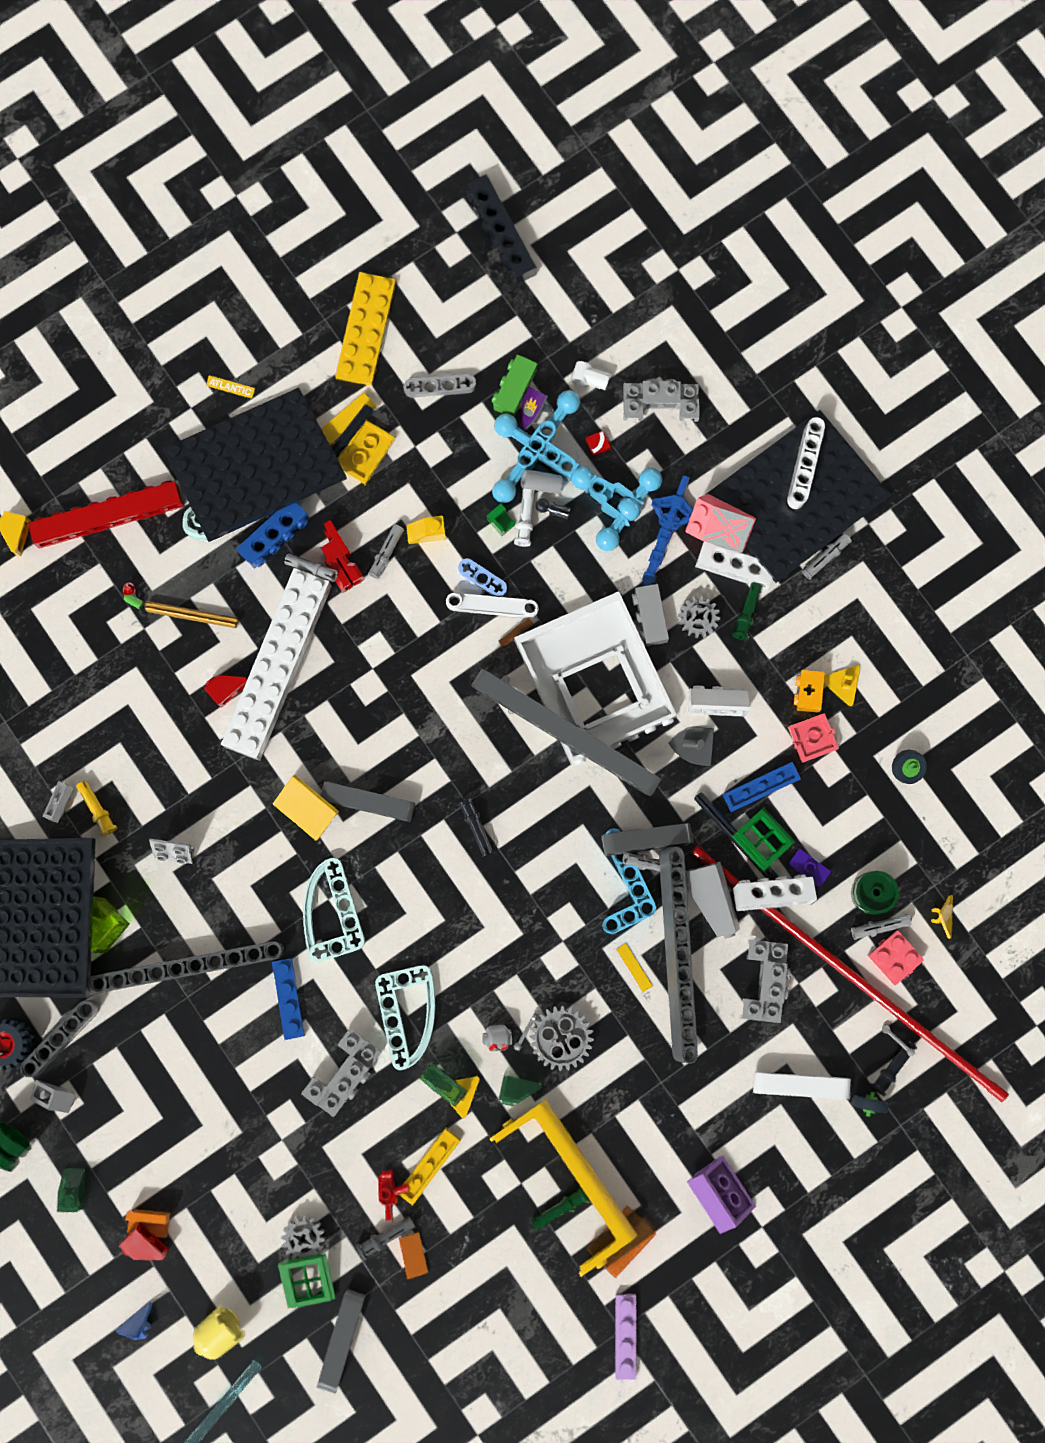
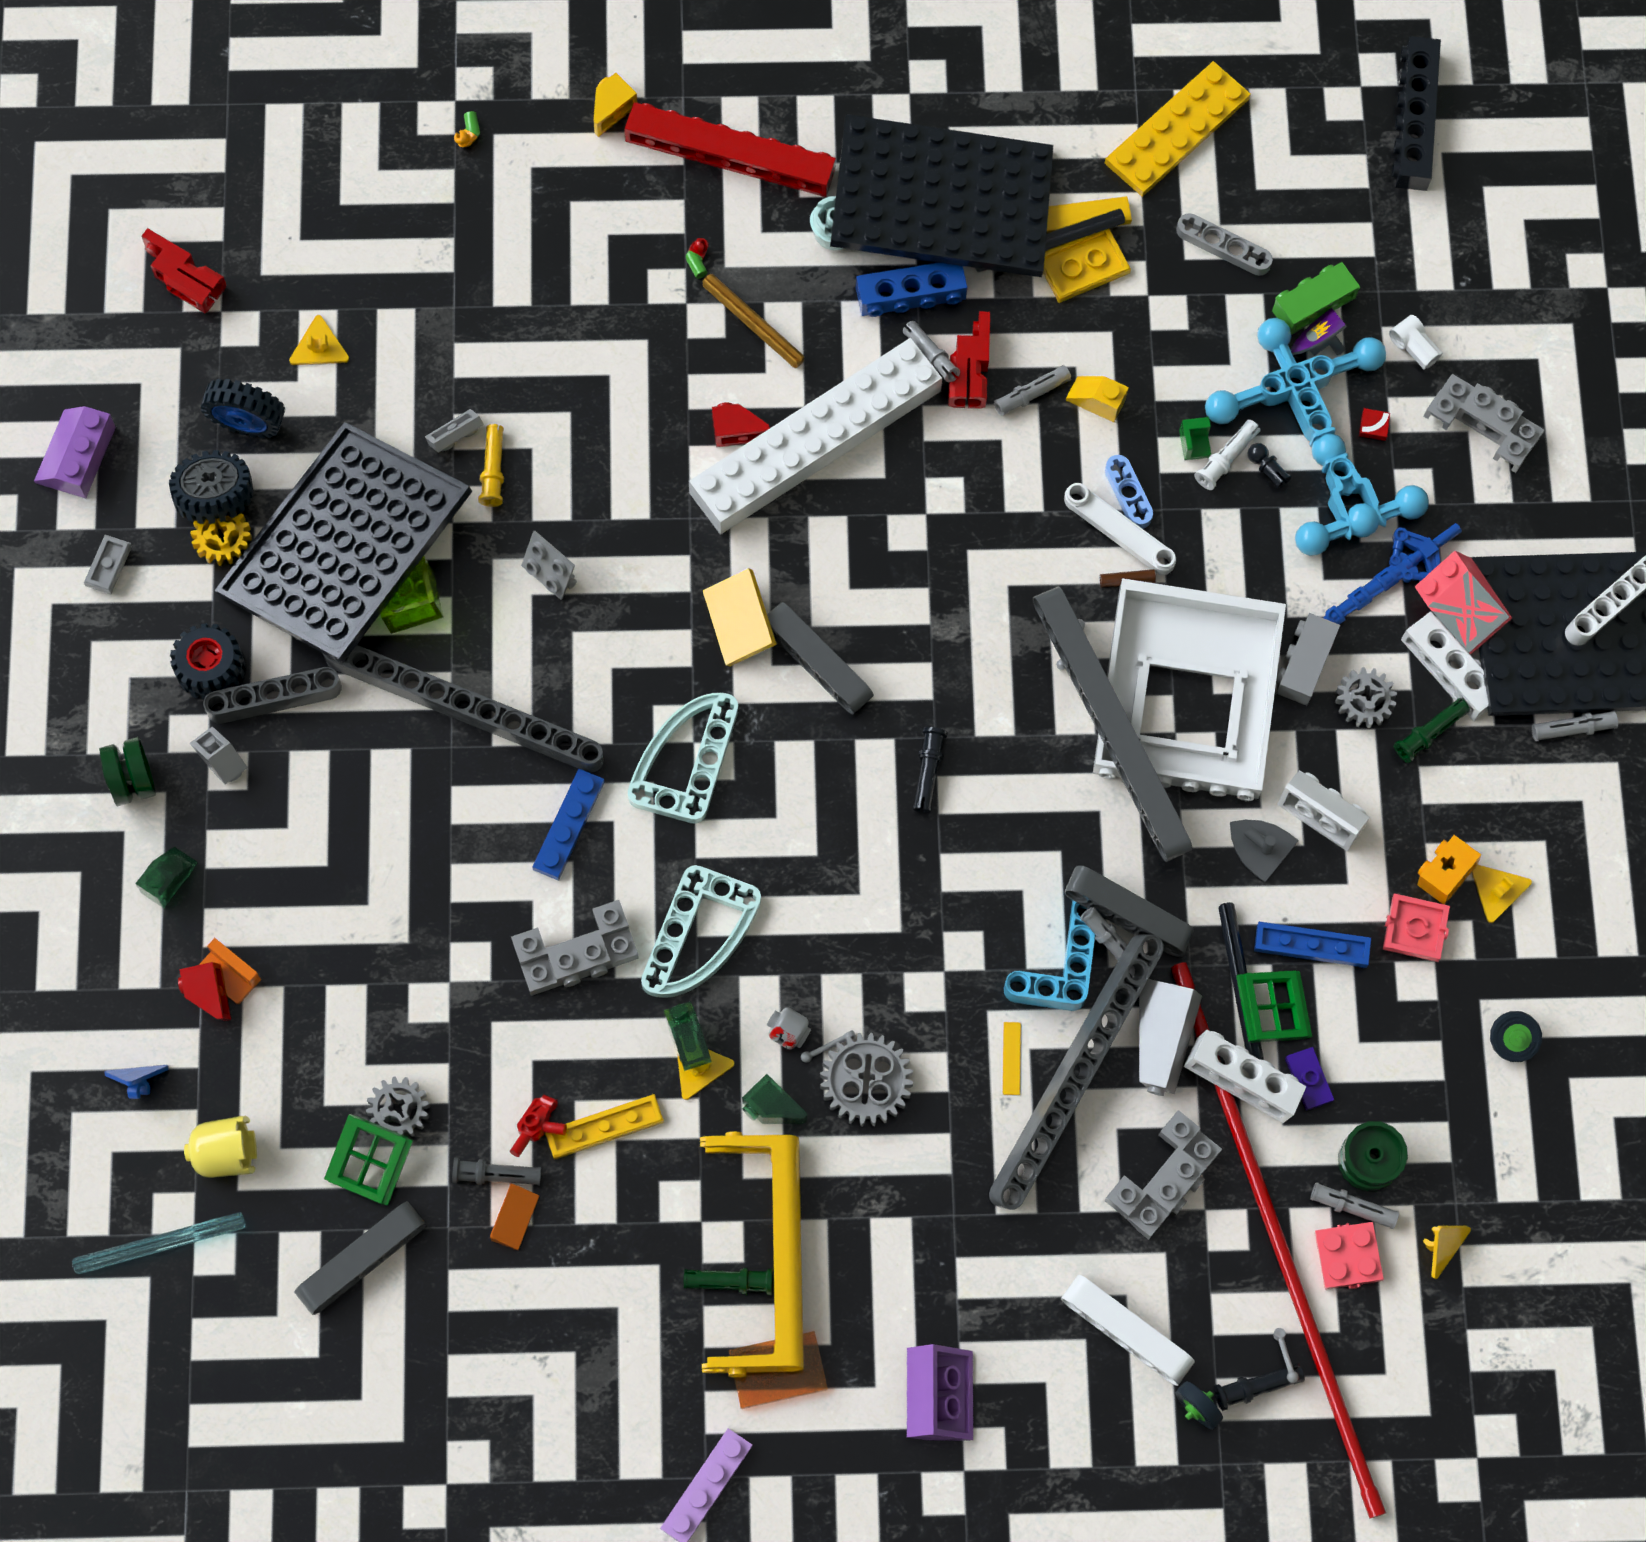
camera: 30 degrees right, 10 degrees down
(231, 387) = (972, 98): yellow sticker -> none
(542, 481) = (1276, 424): light grey brick -> none

